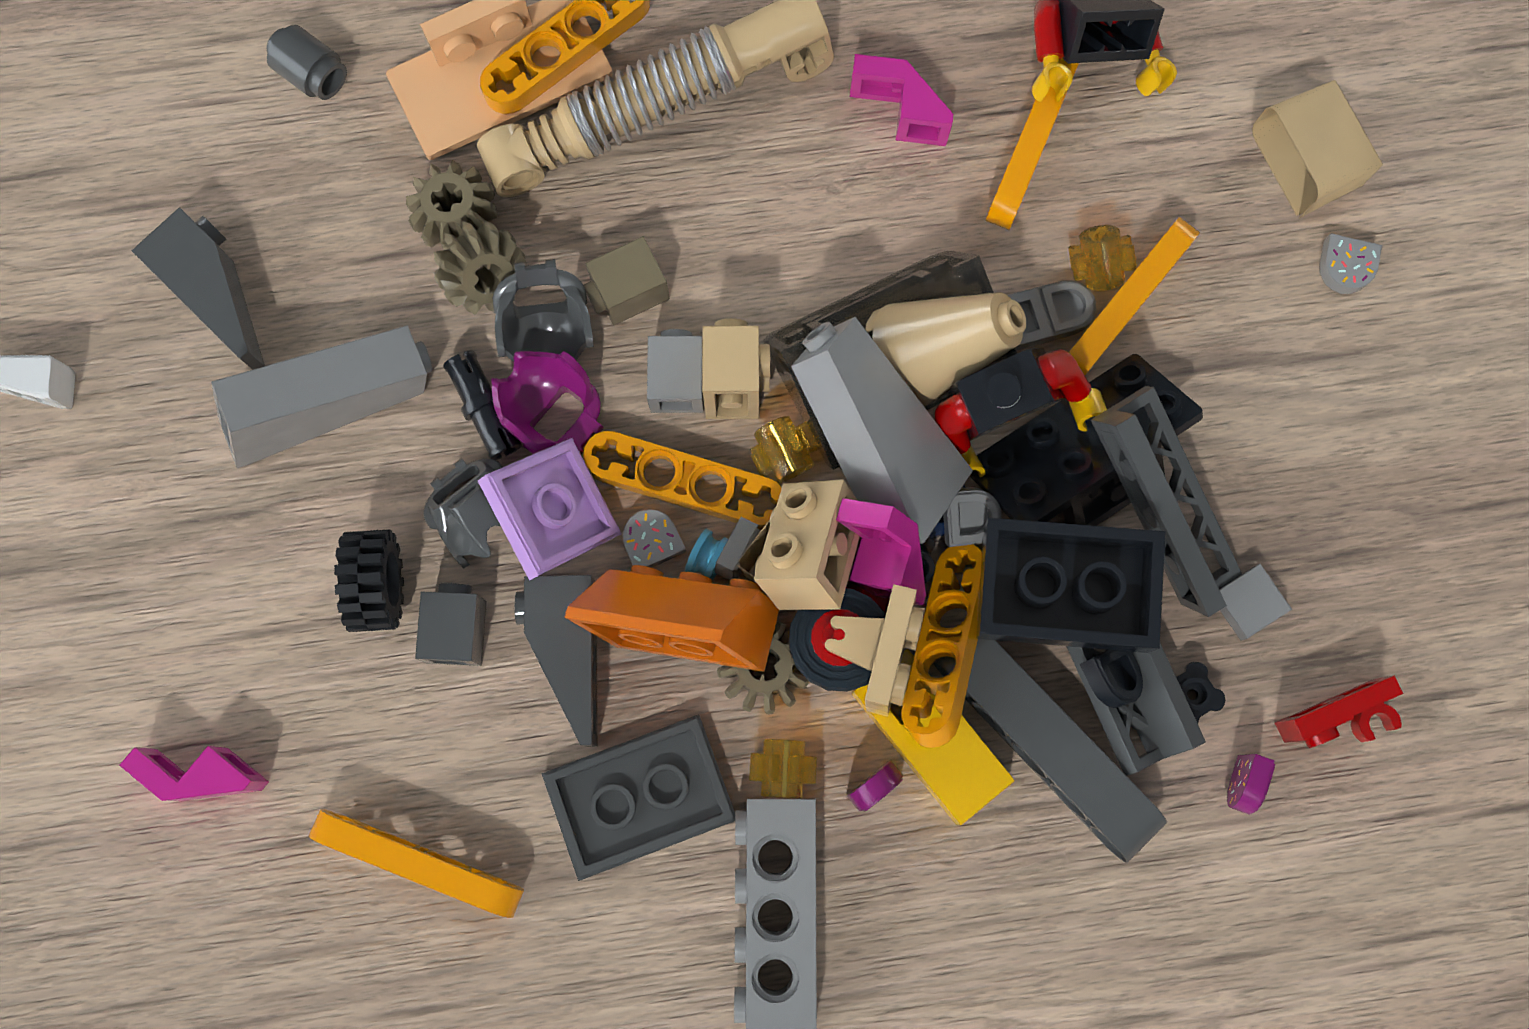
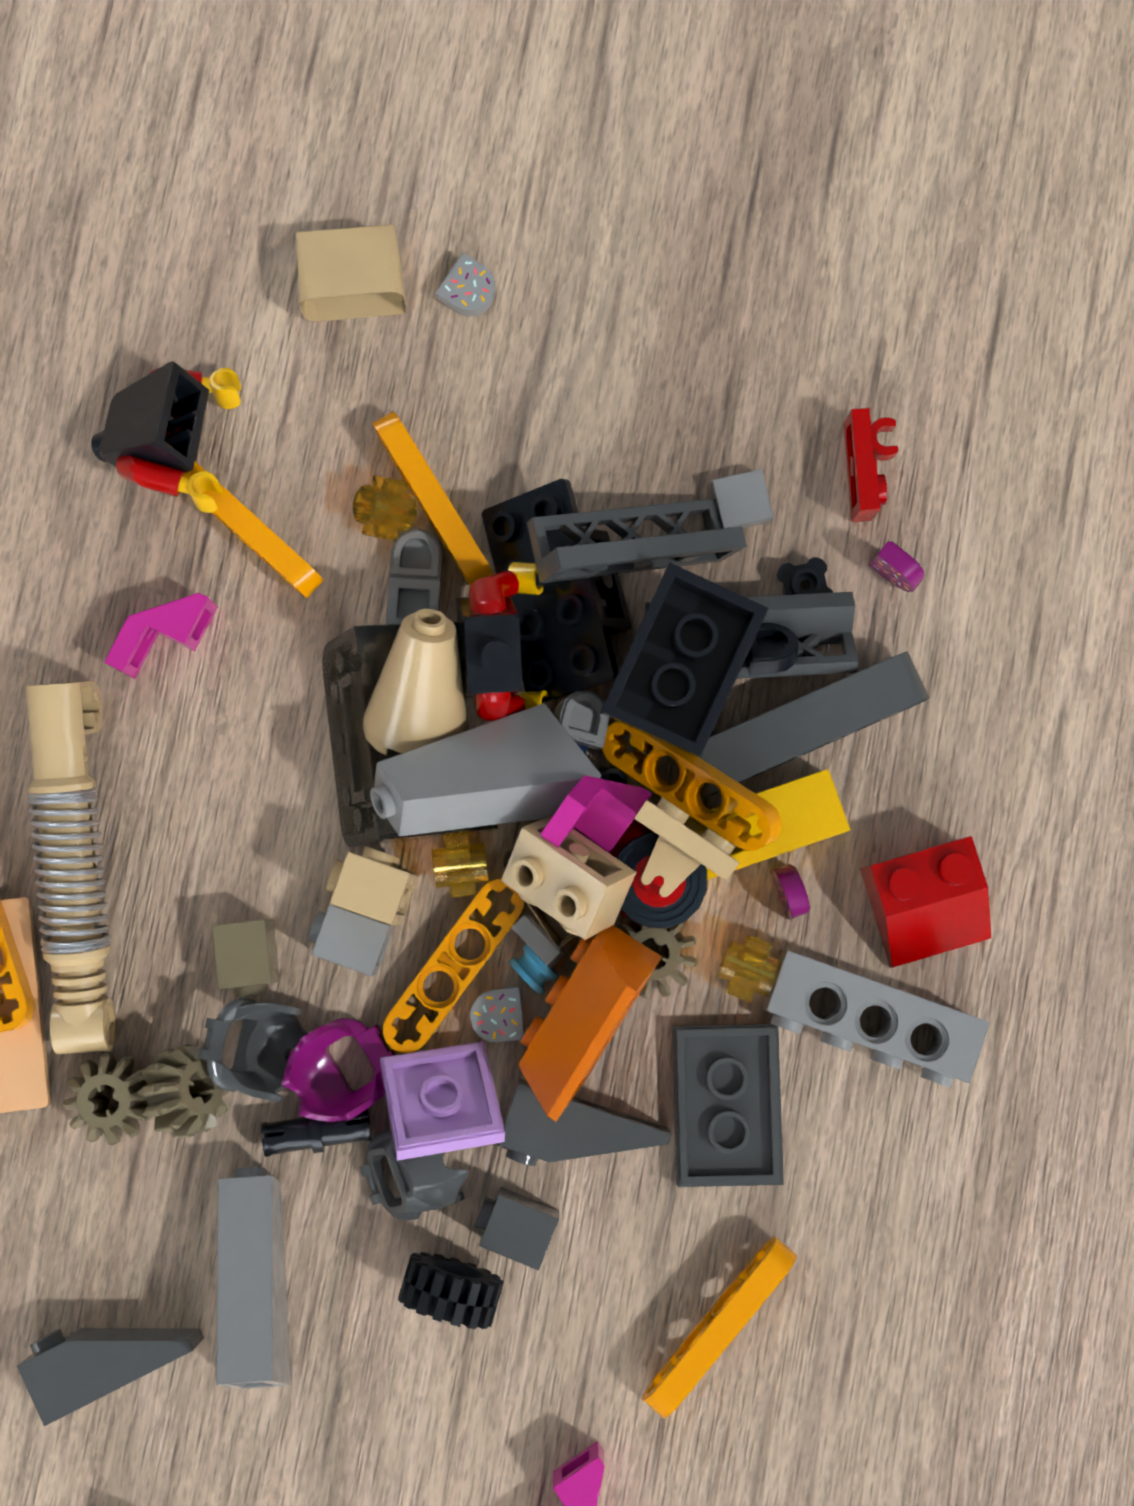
camera: 70 degrees left, 5 degrees up
(919, 935) = (929, 901): none -> red slope

